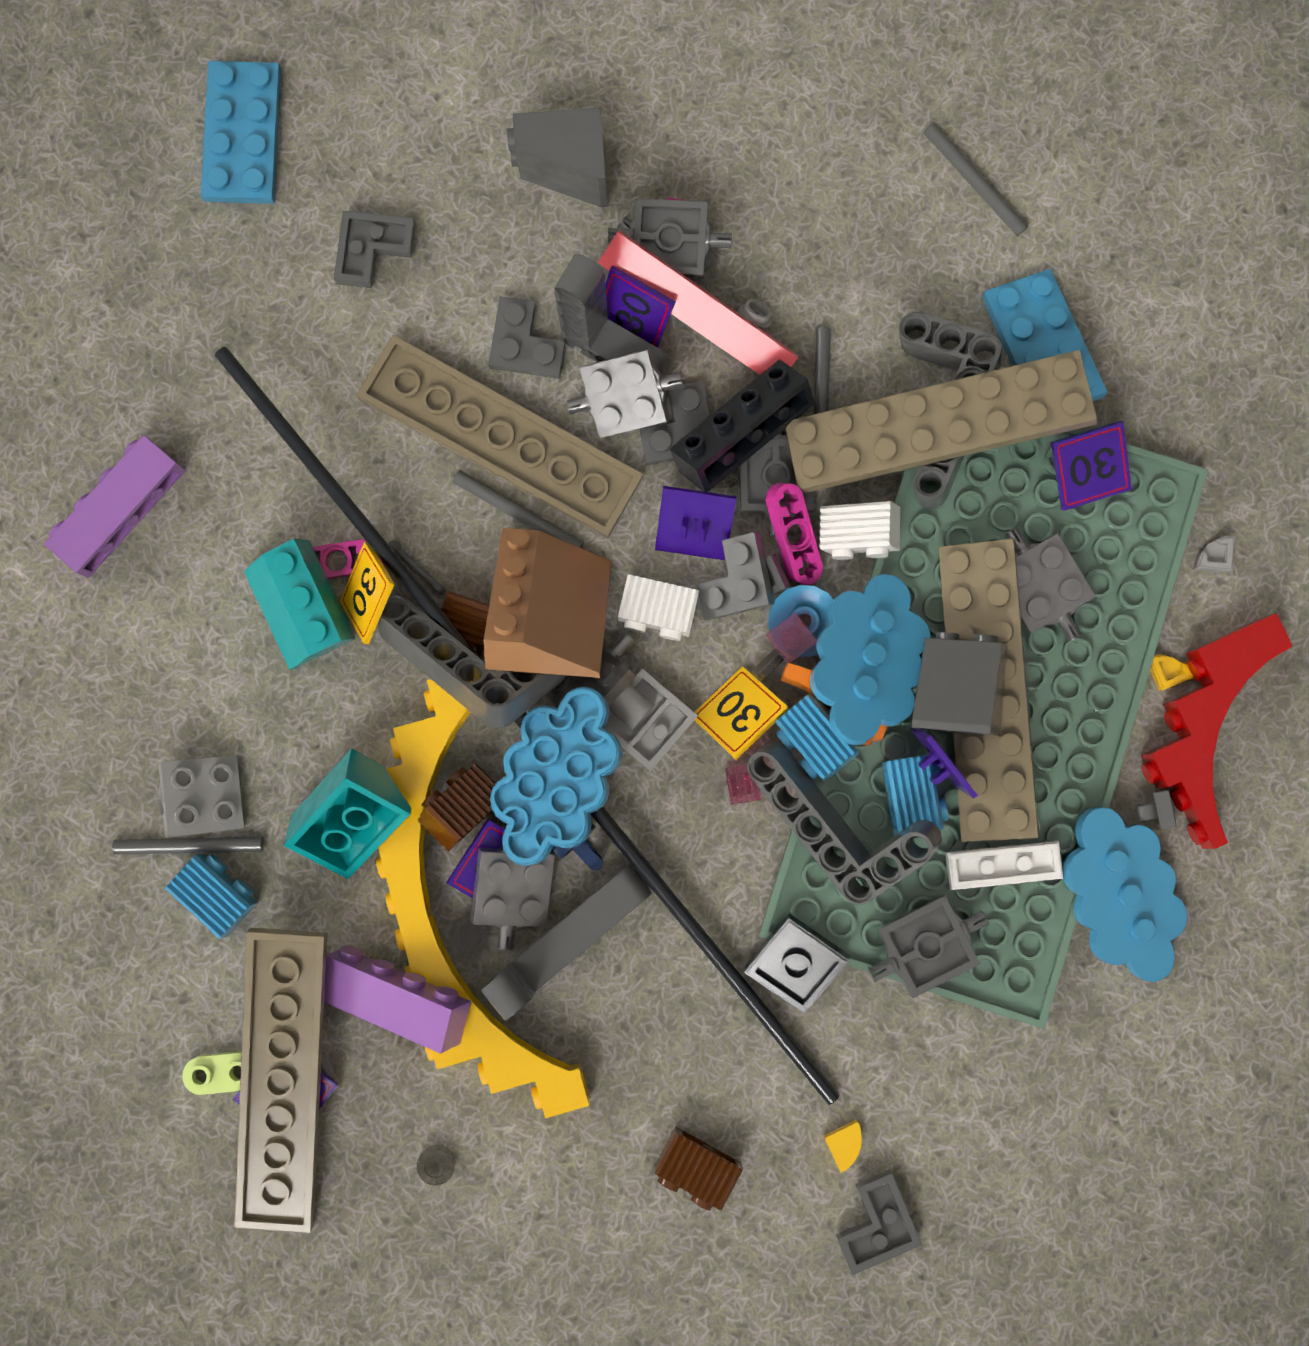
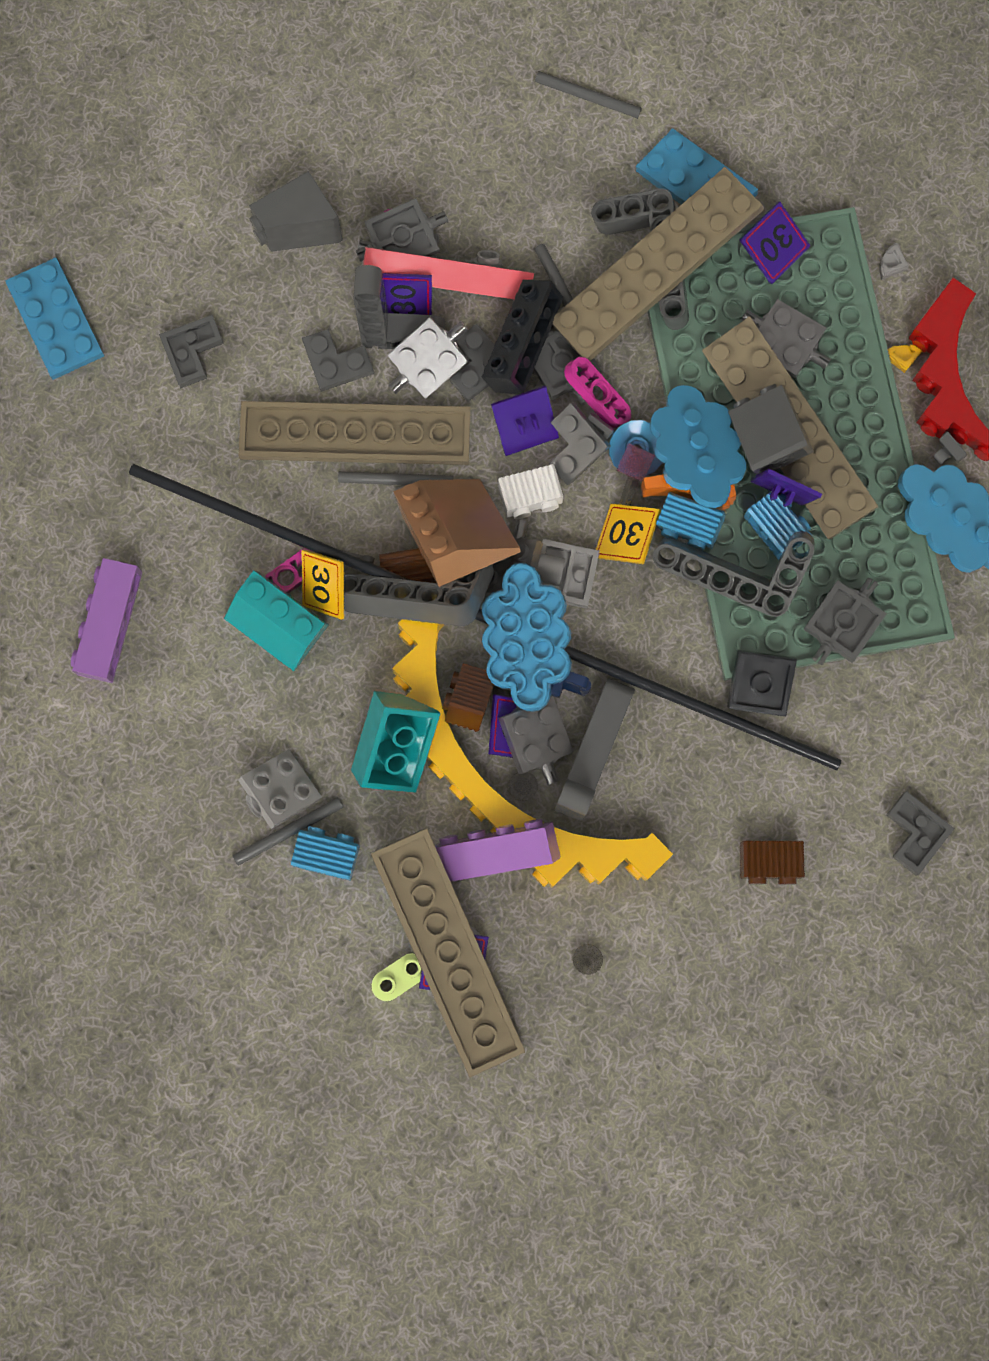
camera: 25 degrees left, 5 degrees down
(741, 785) = (656, 581): clear pink plate -> none
(845, 1144) = (863, 791): yellow tile -> none
(860, 529) = (641, 366): white brick -> none
(1004, 865) = (865, 541): white tile -> none

